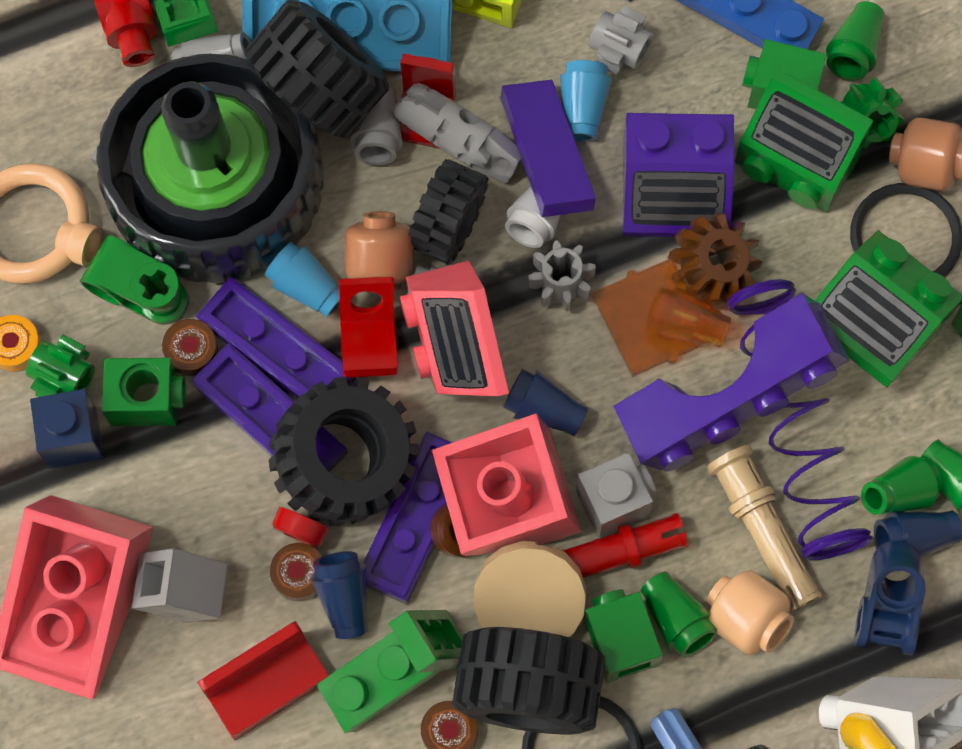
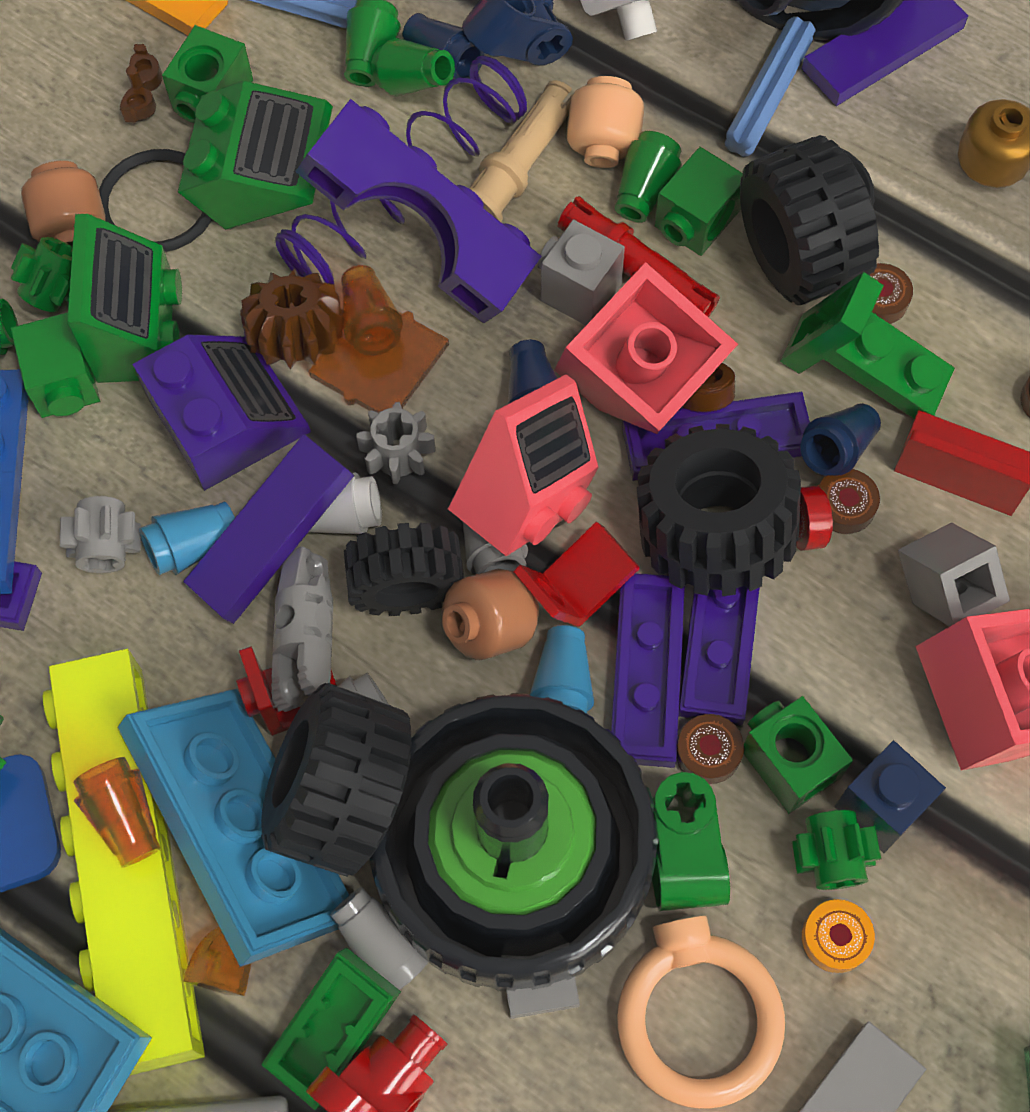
camera: 125 degrees left, 5 degrees down
(530, 589) = (725, 282): tan tile -> none

